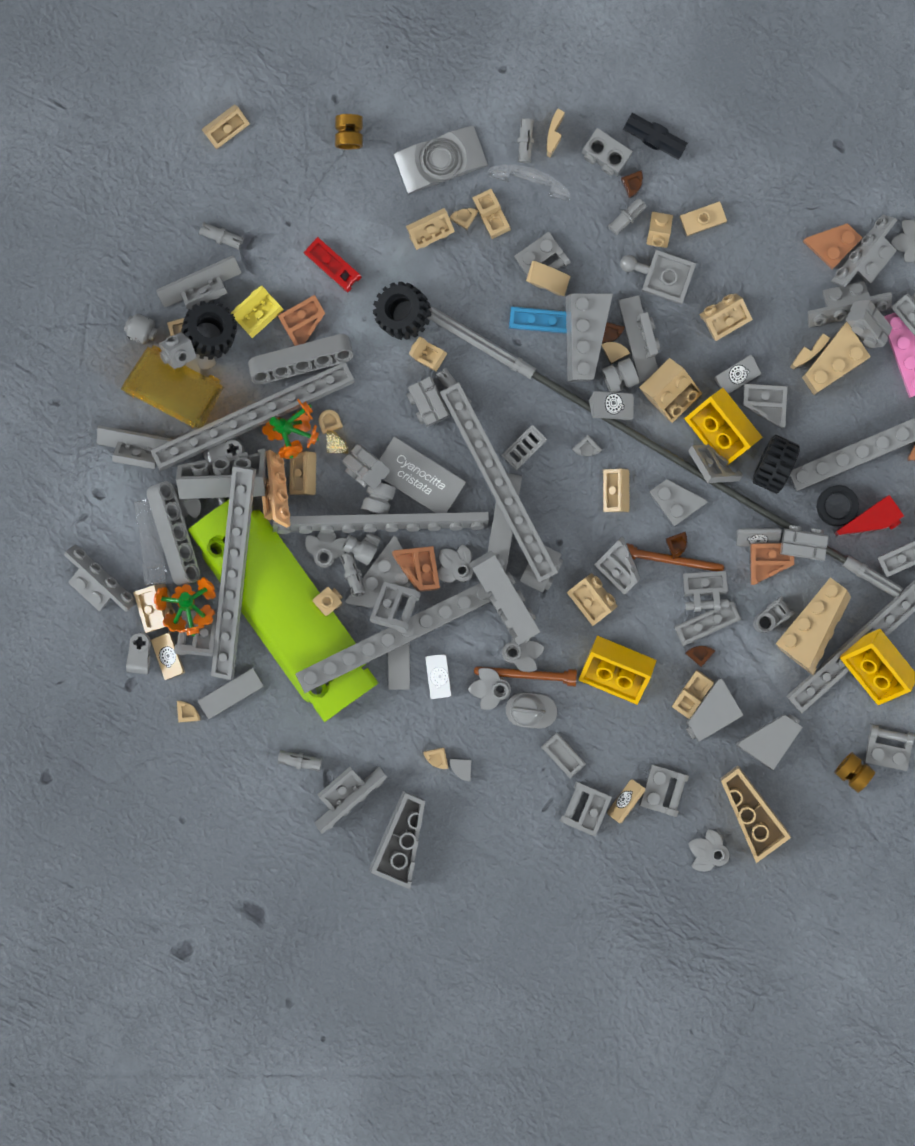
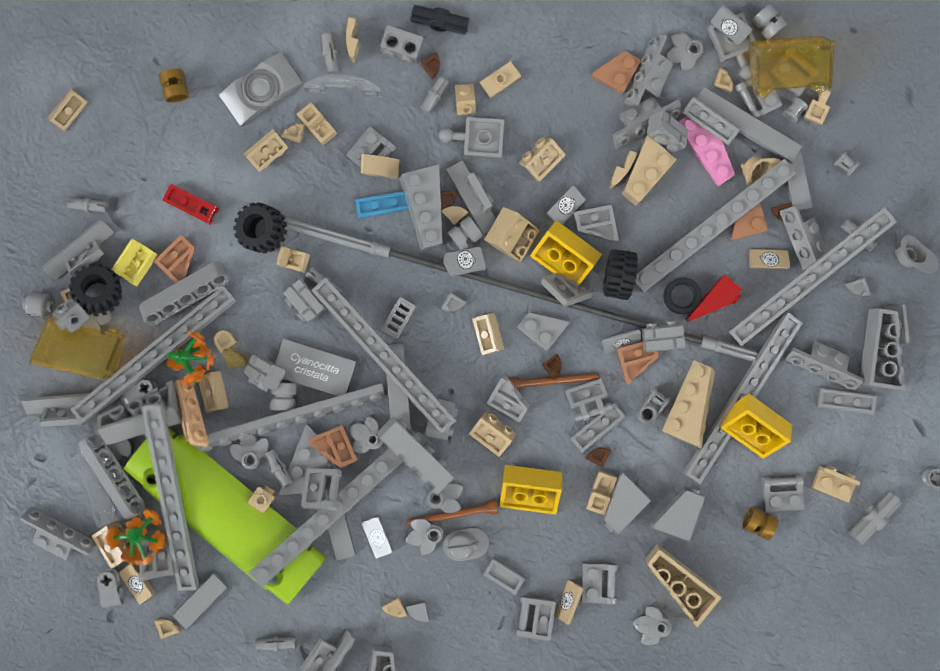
camera: 25 degrees left, 0 degrees up
(363, 550) = (282, 445): light grey piece -> none

